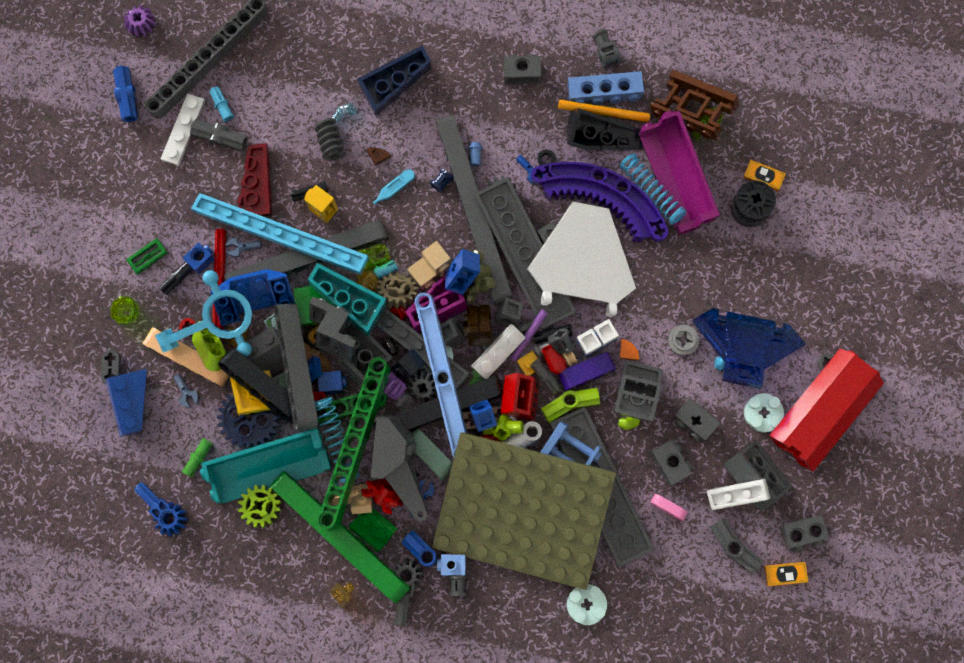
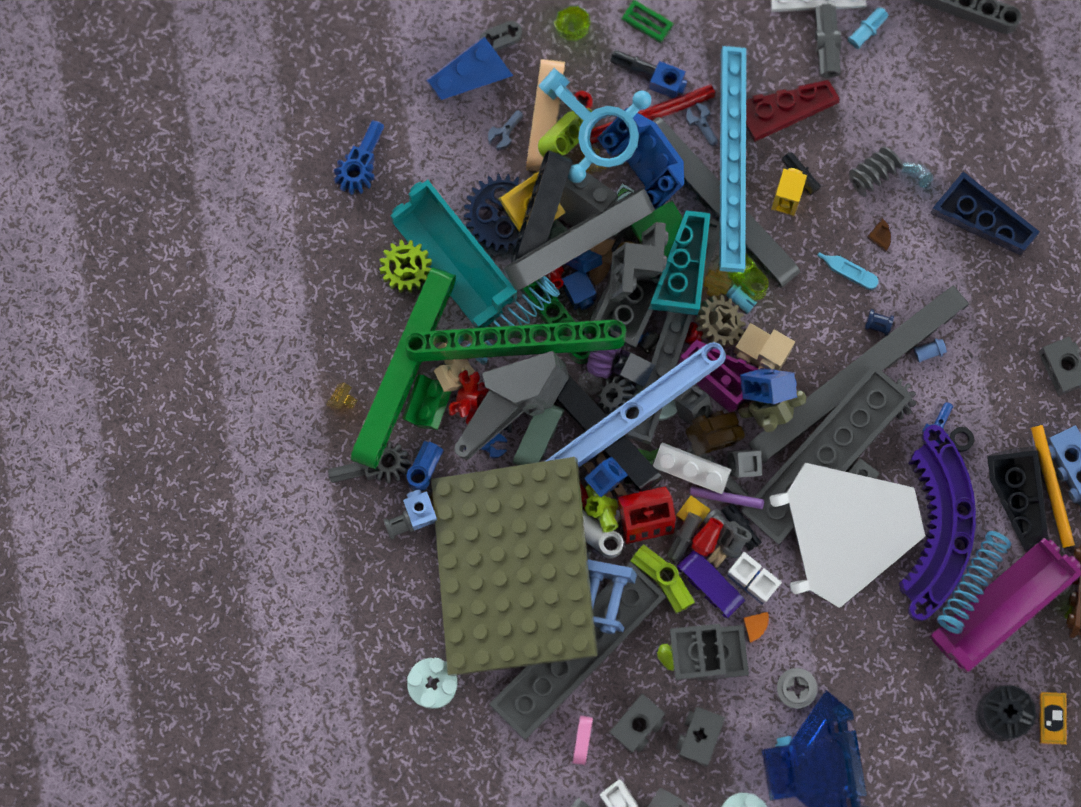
camera: 65 degrees right, 0 degrees up
(197, 457) = (434, 174): bright green pin -> none

